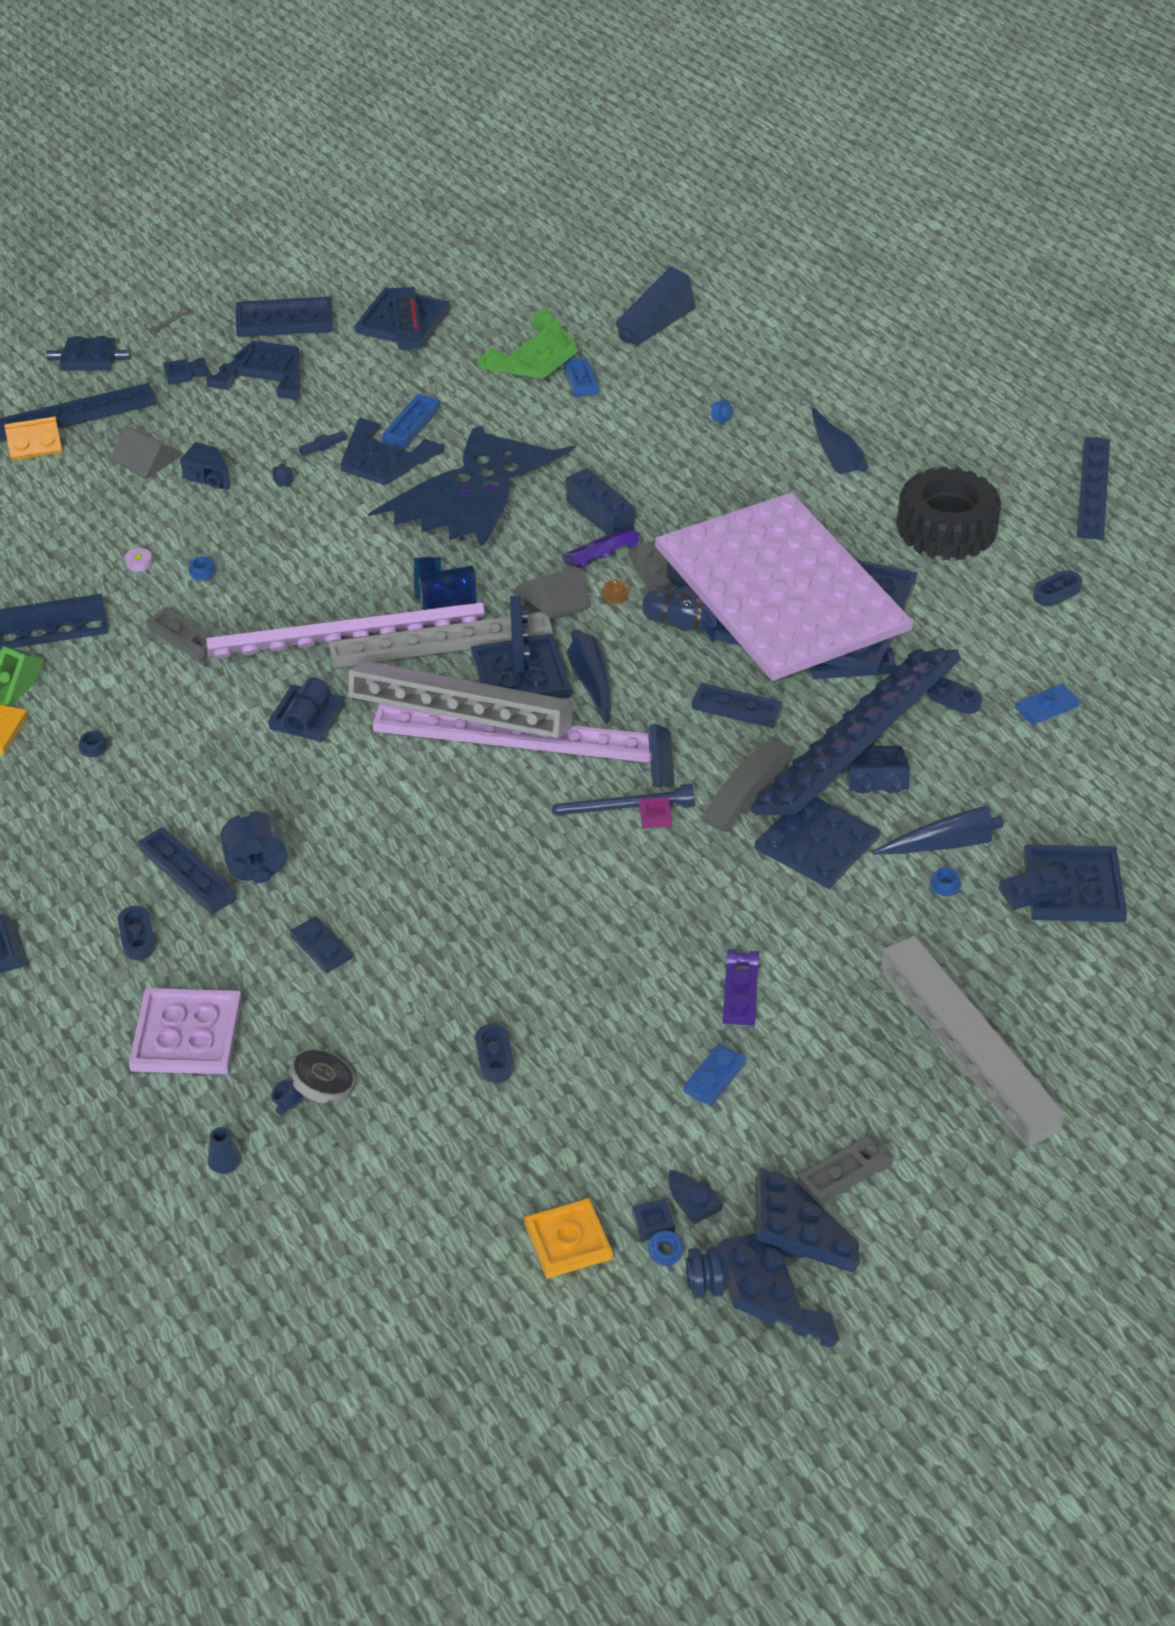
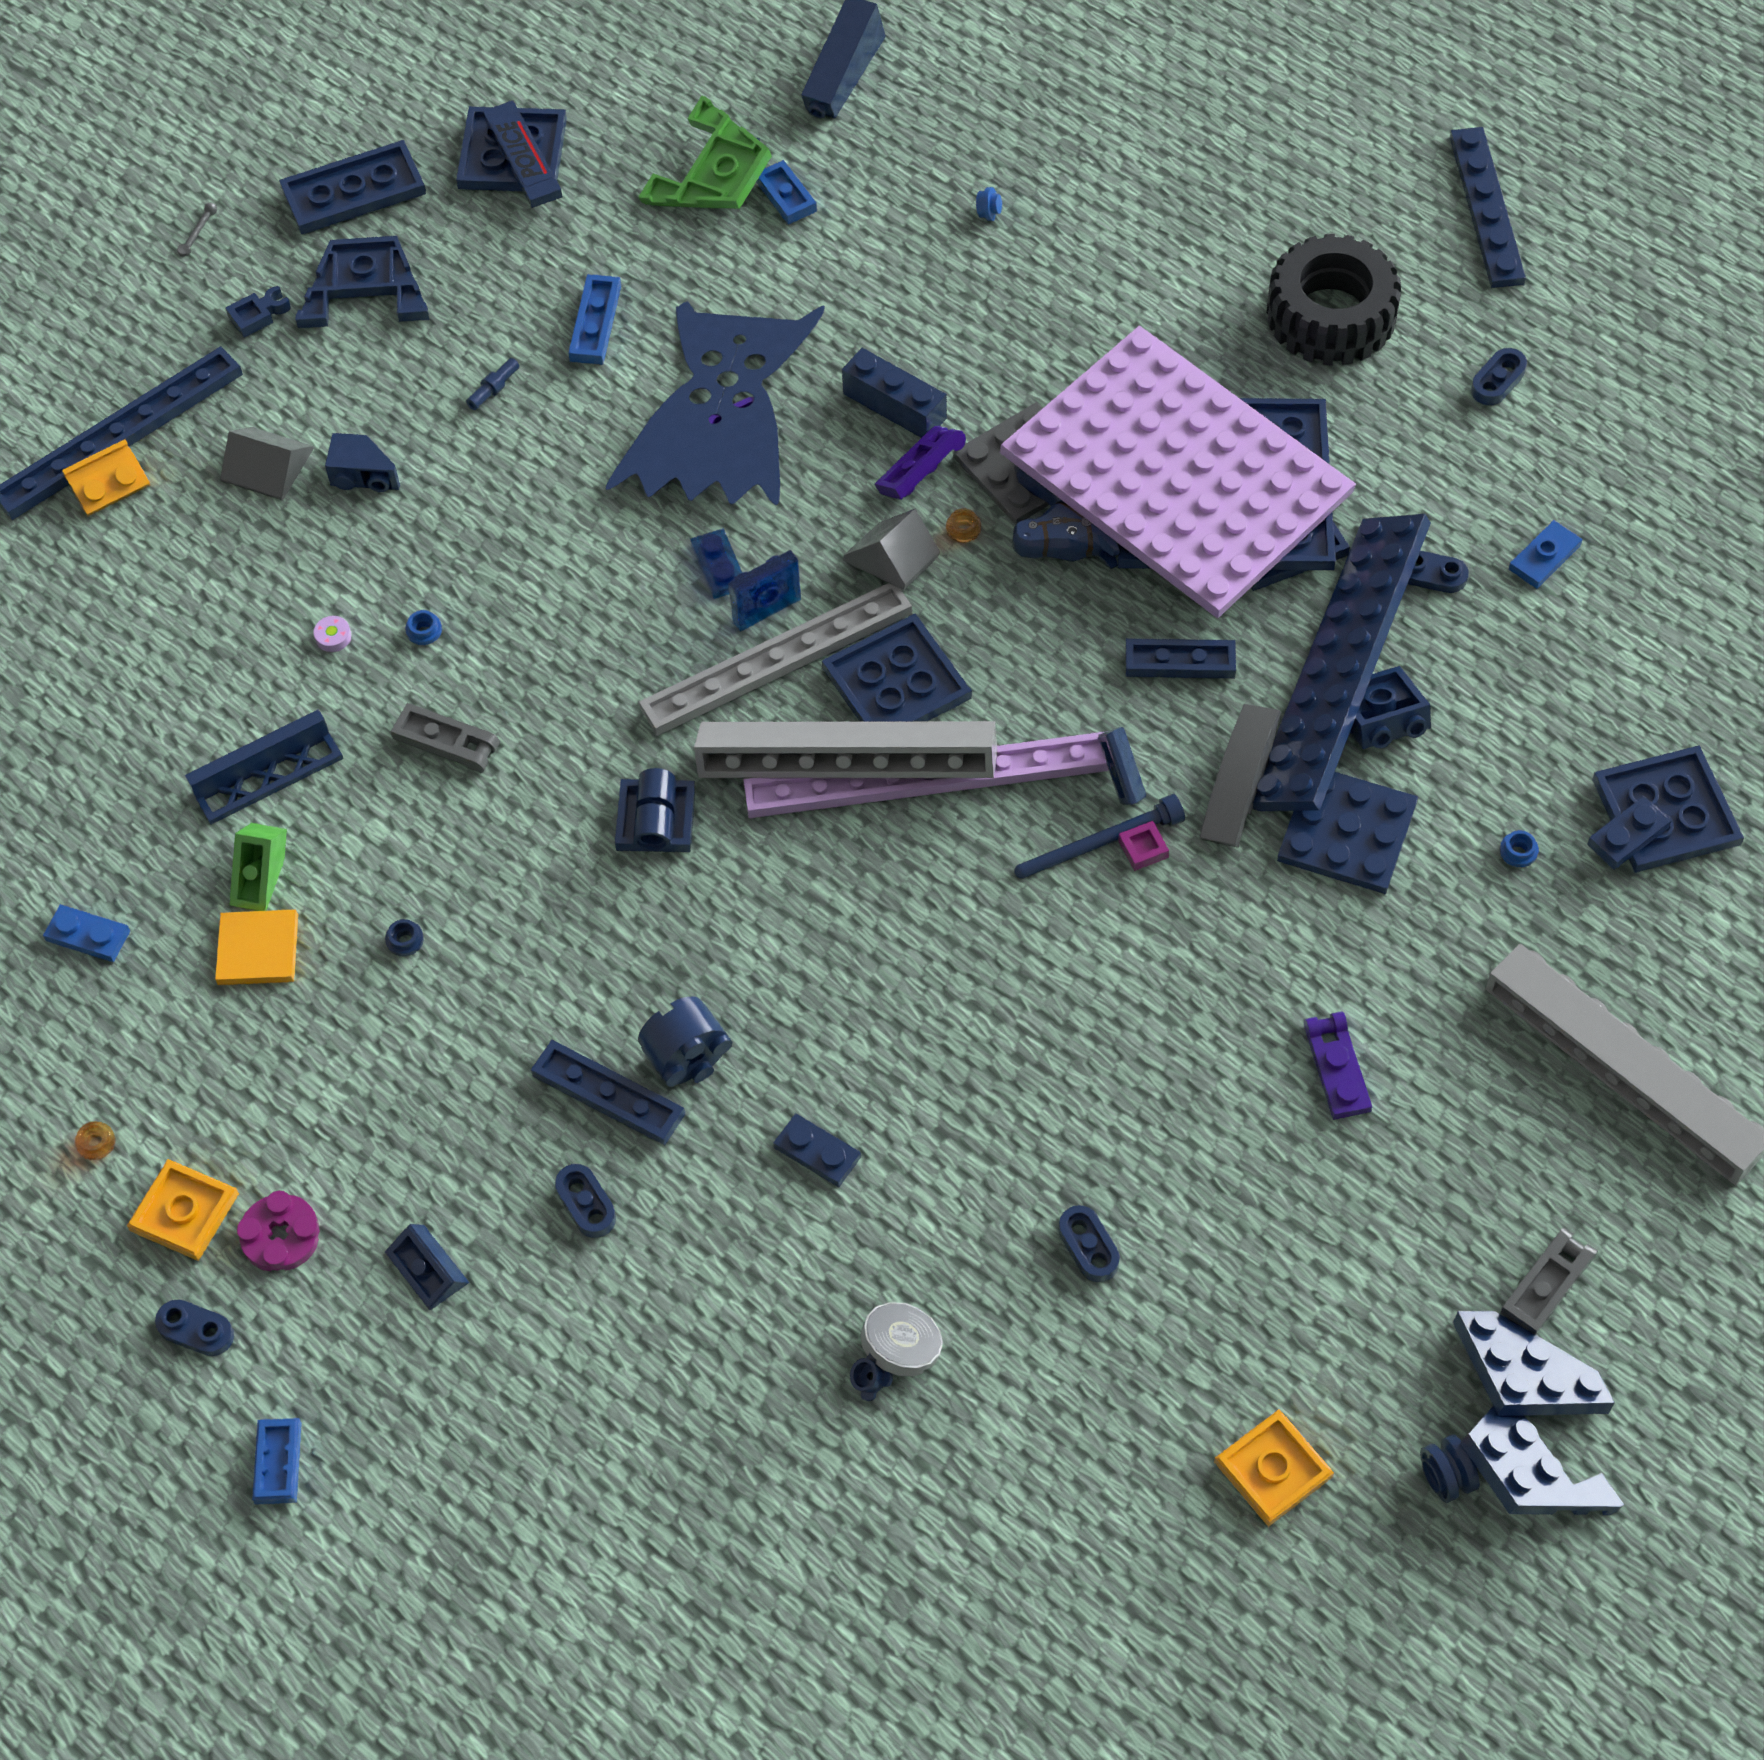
camera: 15 degrees left, 15 degrees up
(88, 353) = (113, 315): dark blue plate -> none
(185, 1031) = (709, 1322): lavender plate -> none
(222, 1152) = (830, 1487): dark blue cone -> none
(282, 475) = (463, 448): dark blue plate -> none
(307, 635) = (641, 686): lavender plate -> none
(381, 461) = (578, 393): dark blue wing -> none
(519, 634) = (879, 630): dark blue plate -> none
(591, 668) = (981, 651): dark blue piece -> none
(652, 1218) = (1361, 1414): dark blue plate -> none
(670, 1239) = (1400, 1446): blue plate -> none
(693, 1197) = (1389, 1365): dark blue plate -> none
(714, 1074) = (1353, 1195): blue plate -> none
(838, 446) = (1154, 223): dark blue piece -> none
(952, 832) = (1496, 780): dark blue piece -> none

